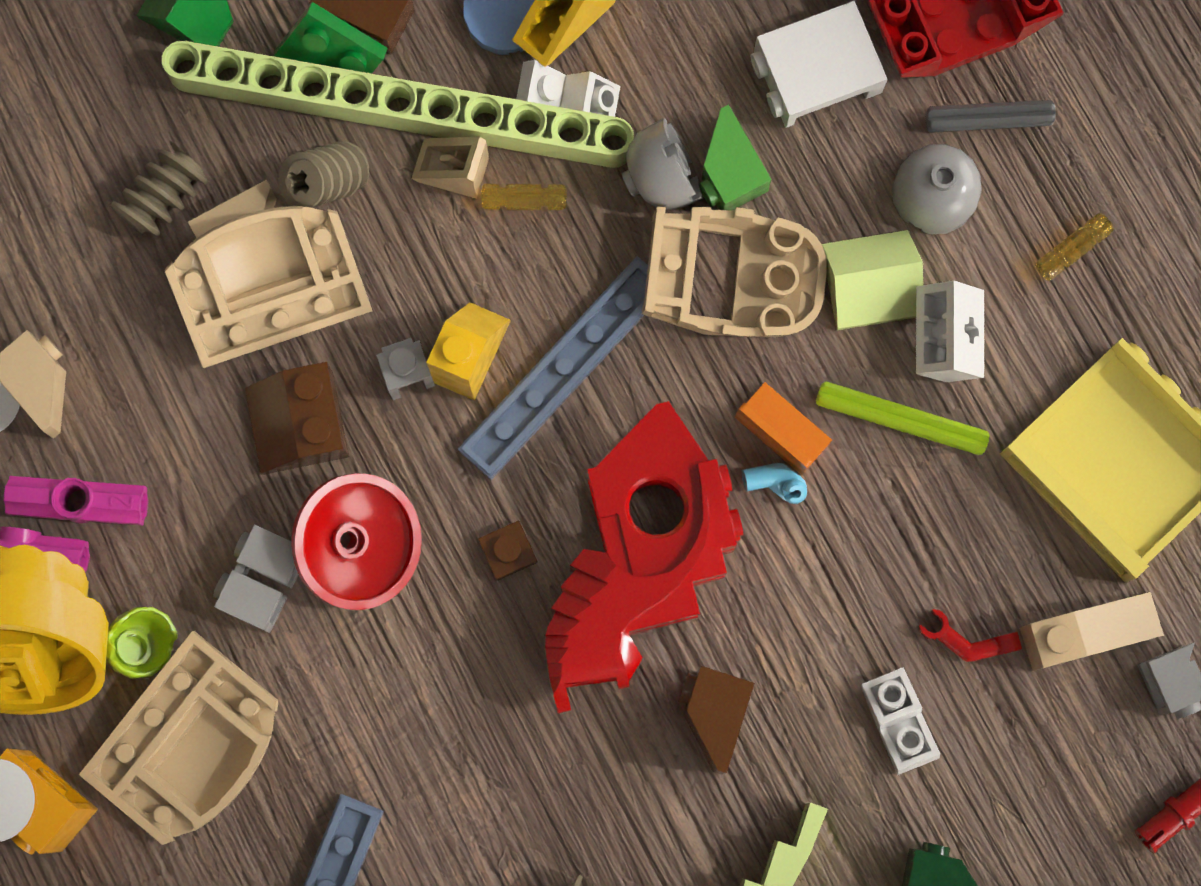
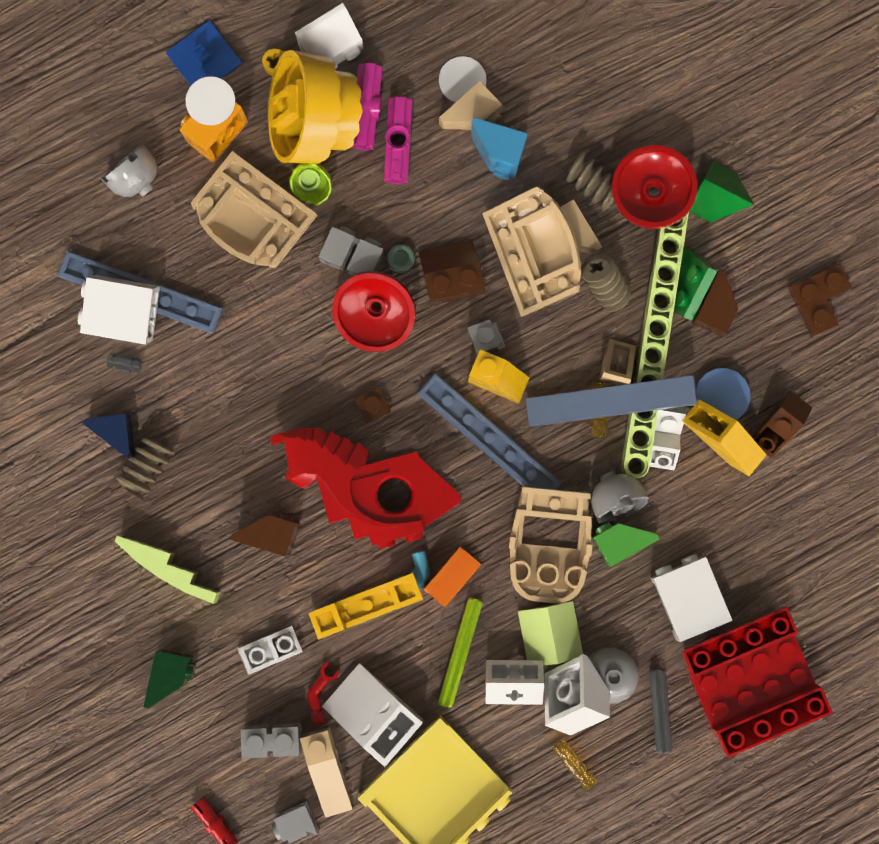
camera: 90 degrees right, 5 degrees up
(97, 336) = (499, 147): none -> dark azure slope
(152, 76) = (657, 169): none -> red dish
(270, 501) = (401, 258): none -> sand green tile
(512, 171) = (612, 401): none -> sand blue tile
(829, 563) = (365, 605): none -> yellow slope
(972, 236) = (575, 696): none -> white slope
(1003, 554) = (372, 714): none -> white slope
(1049, 697) = (259, 743): none -> light grey piece

